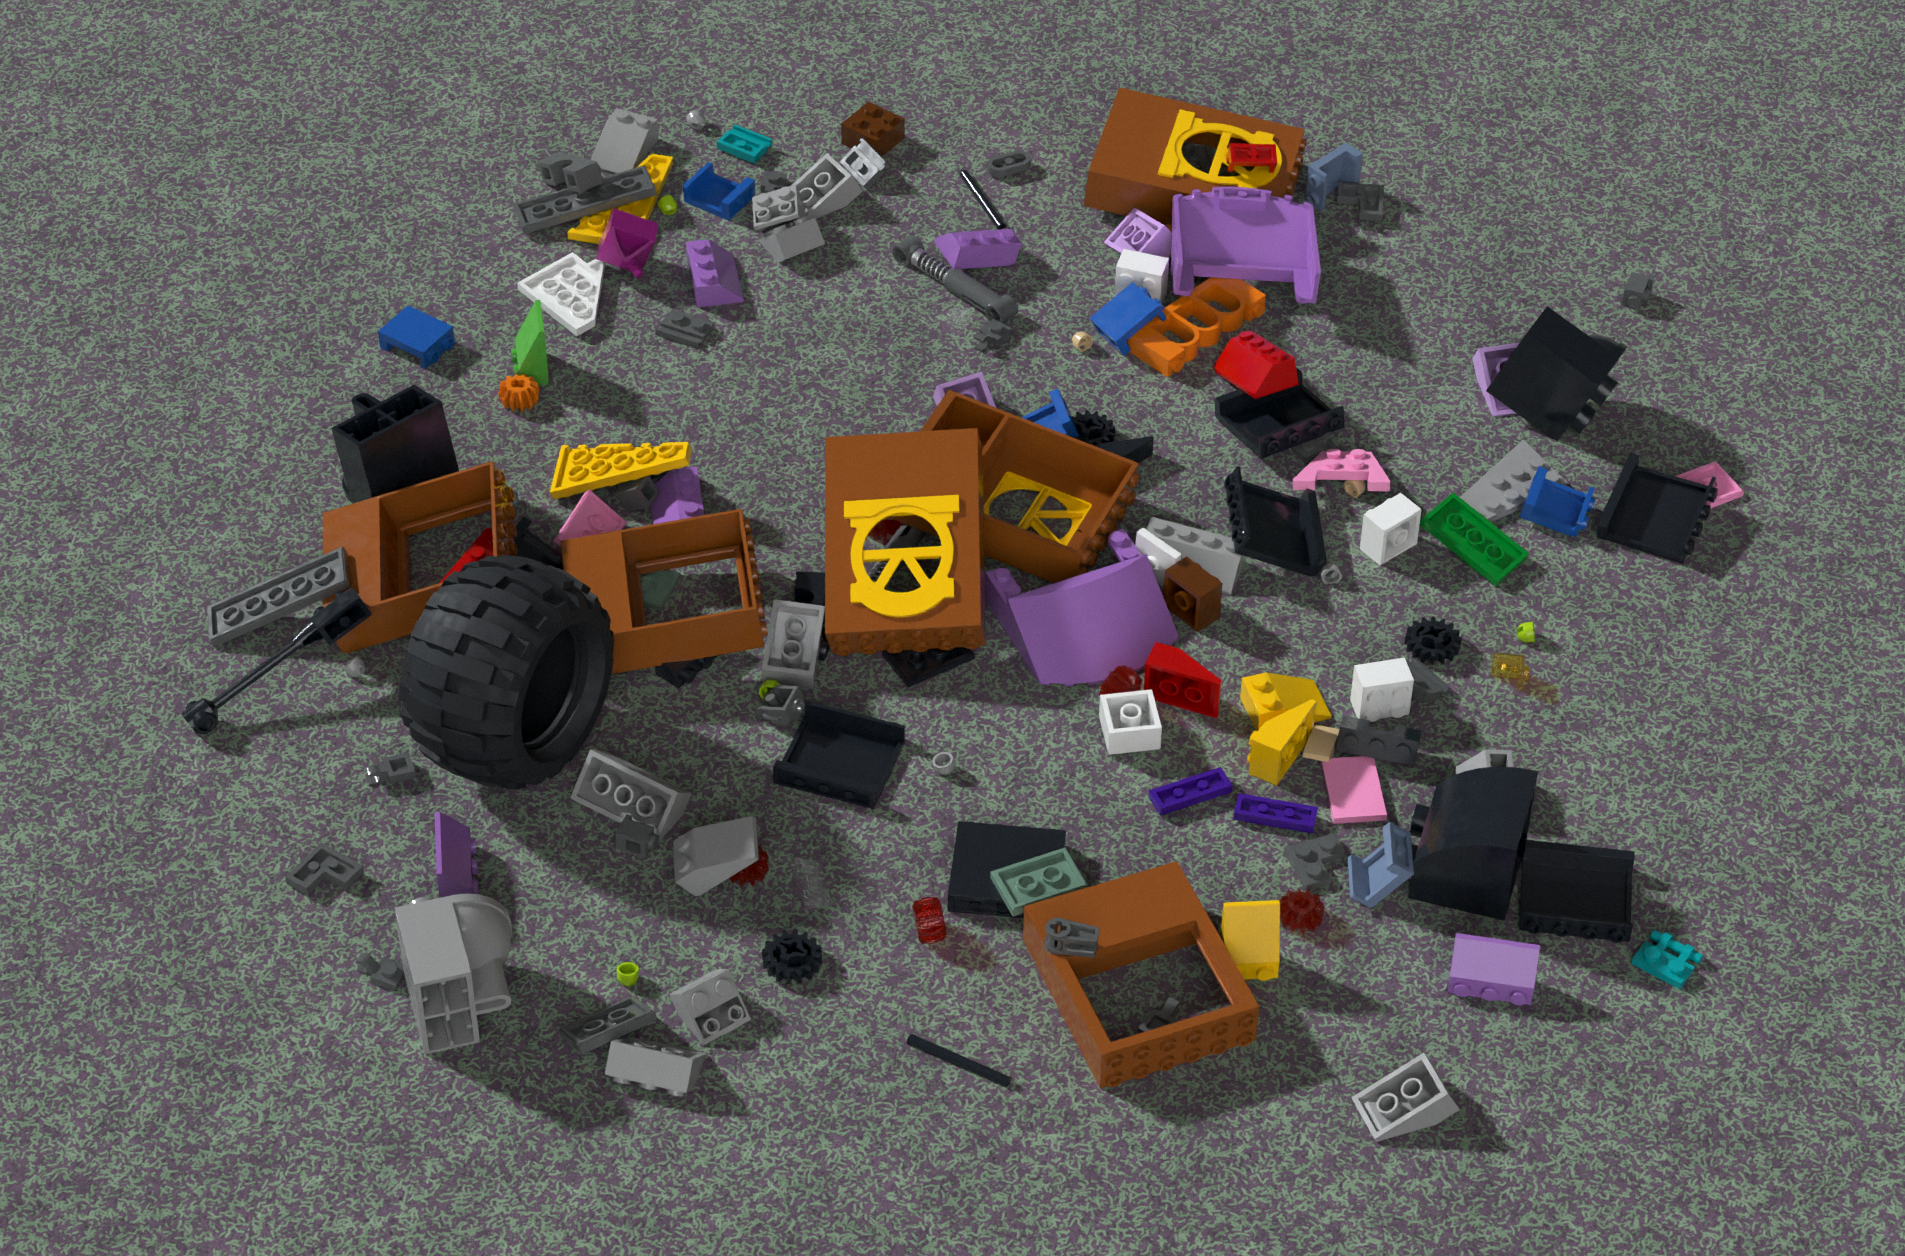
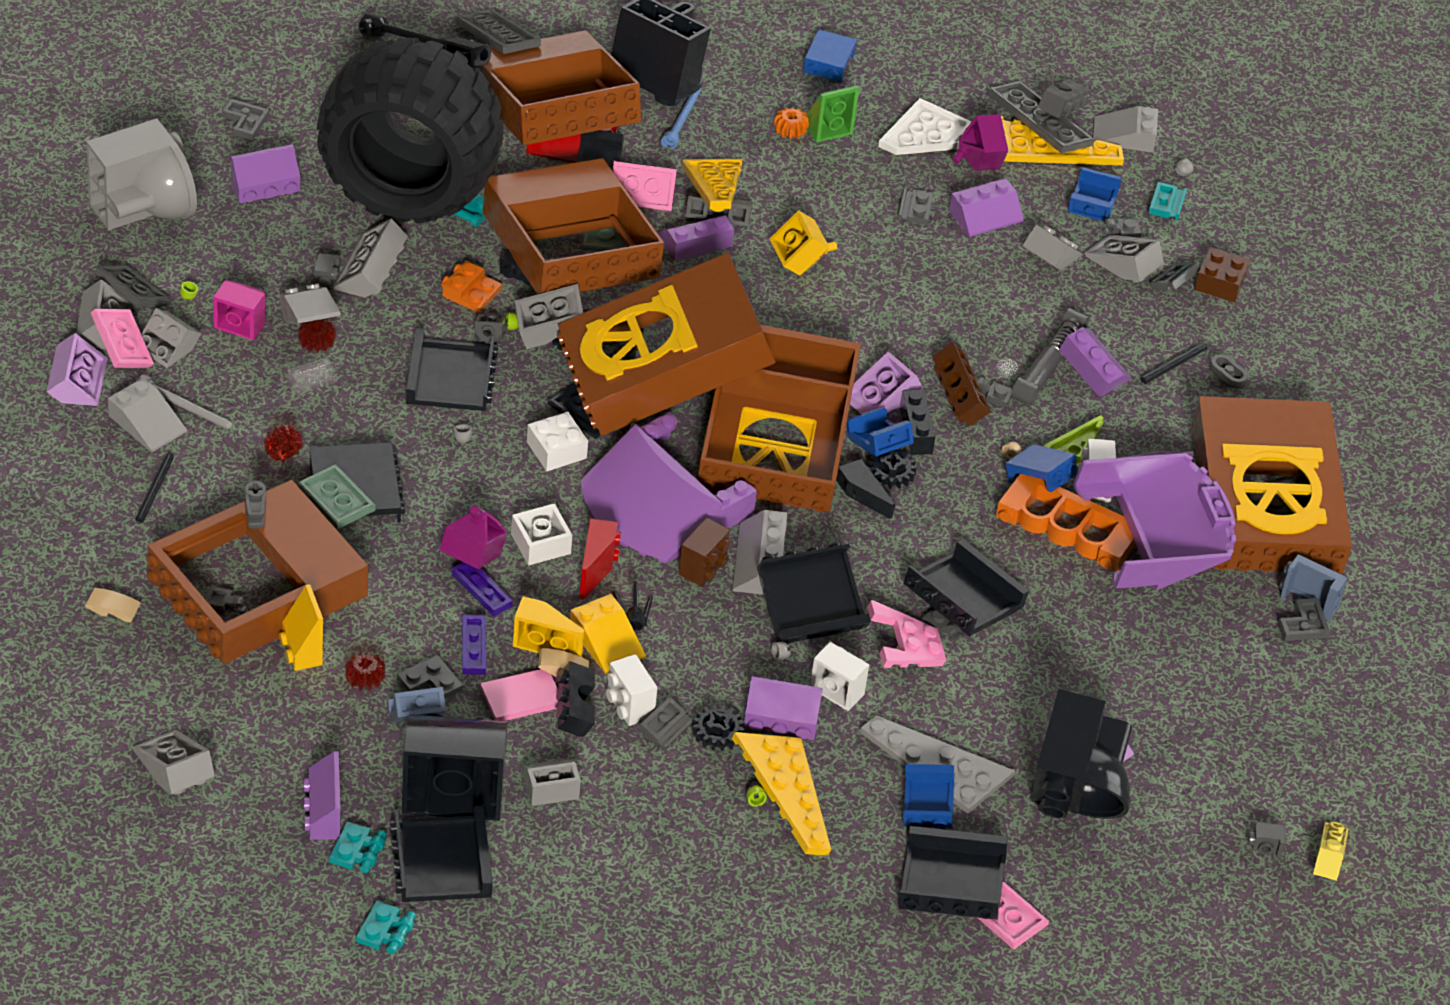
camera: 70 degrees right, 0 degrees up
(667, 205) = (1063, 169): lime hinge -> none
(692, 920) = (239, 309): none -> dark pink piece
(701, 715) = (470, 286): none -> orange plate
(710, 1042) = (122, 338): none -> bright pink tile
(736, 420) = (800, 243): none -> yellow piece
(745, 1105) = (77, 372): none -> lavender slope
(777, 208) = (1079, 228): light grey slope -> none
(783, 1039) = (177, 400): none -> light grey piece
(792, 956) = (229, 375): black gear -> none
(838, 1047) = (145, 415): none -> light grey slope
(984, 684) = (557, 441): none -> white brick
(995, 343) = (960, 384): none -> reddish brown brick
(1011, 391) = (916, 410): none -> black arch
(1083, 293) = (1077, 438): none -> lime wing
(1121, 680) = (577, 520): clear red gear -> none
(1130, 776) = (474, 538): none -> magenta piece
(1146, 1125) = (107, 601): none -> tan slope
(1158, 552) = (734, 514): white plate -> none
(1251, 155) = (1268, 500): red hinge -> none
(1256, 365) = (1014, 561): red slope -> none
(1258, 668) = (634, 614): none -> black plant
(1426, 582) = (783, 708): none -> medium lavender slope
(1474, 539) = (855, 741): green plate -> none
(1510, 667) = (703, 788): clear yellow bracket -> none
(1521, 604) = (787, 780): none -> yellow wing
(1553, 971) = (350, 844): none -> teal plate
(1662, 256) = (1331, 850): none -> light yellow slope

